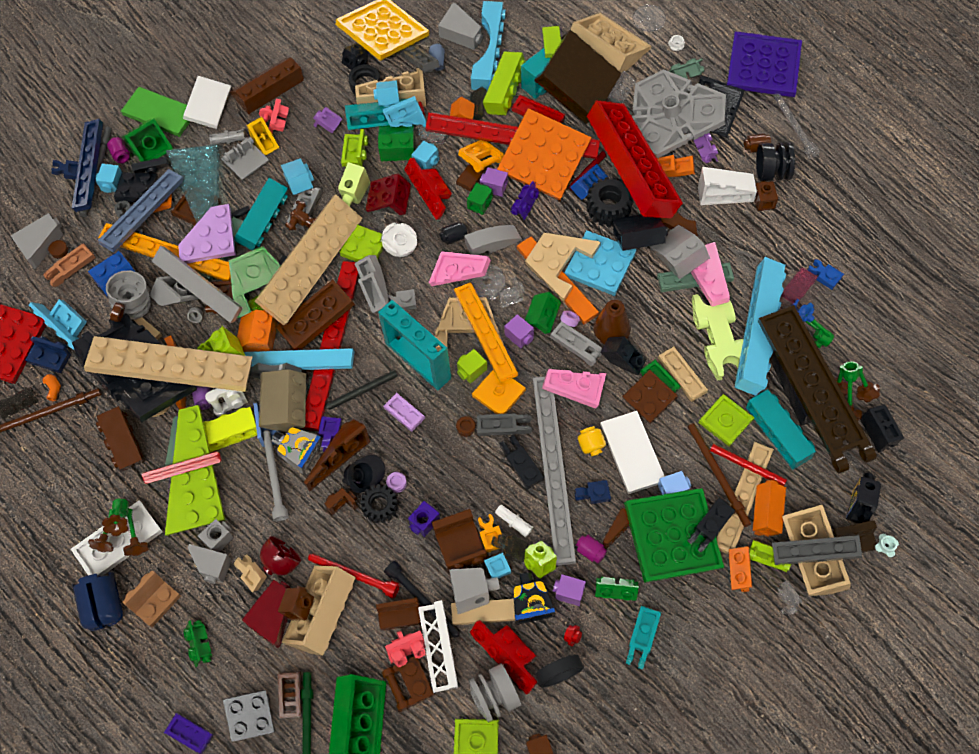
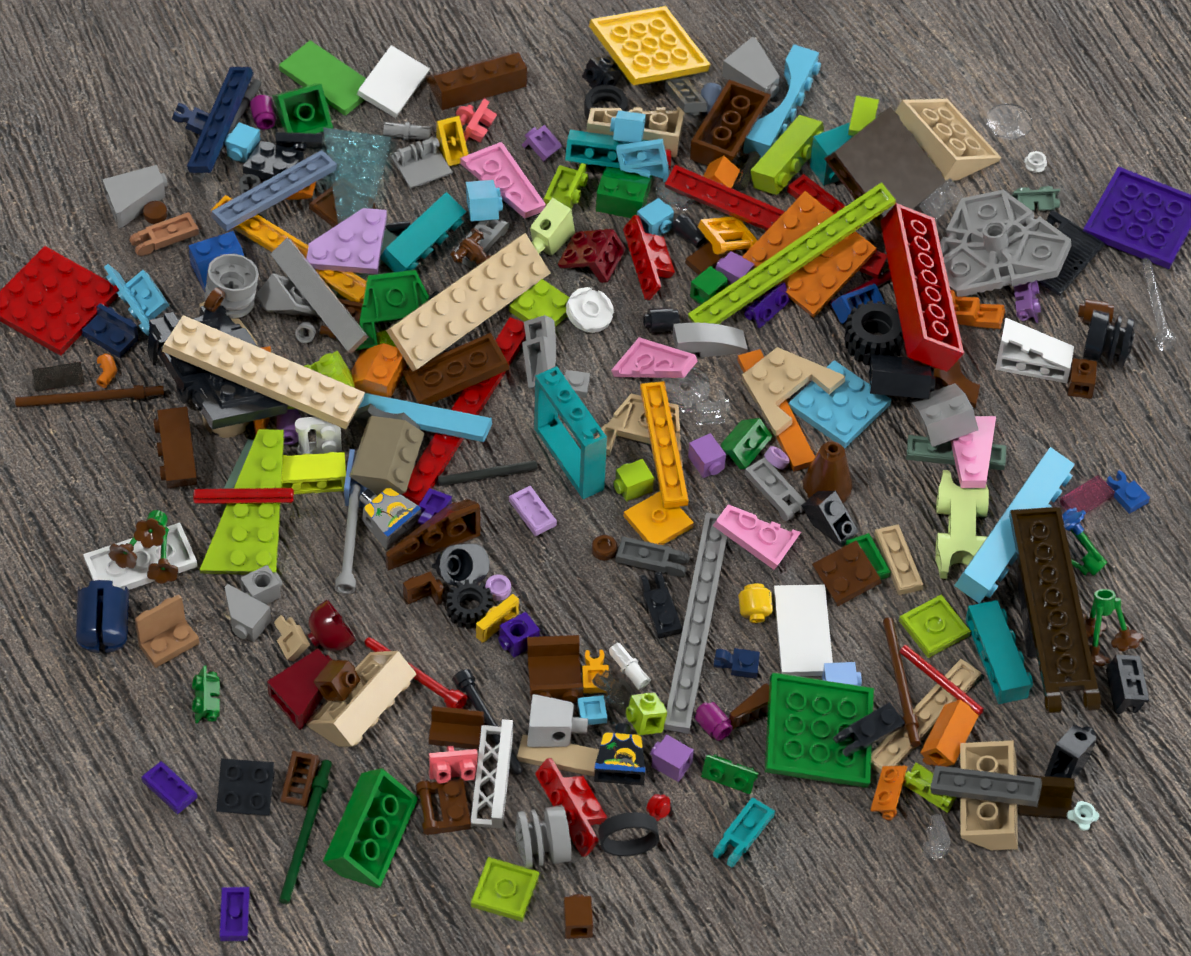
camera: 10 degrees right, 10 degrees down
(300, 145) = (515, 188): none -> bright pink wing
(403, 509) = (496, 616): none -> yellow plate
(450, 158) = (688, 230): none -> black cone
(456, 71) = (728, 123): none -> reddish brown slope
(535, 160) = (794, 256): none -> lime plate

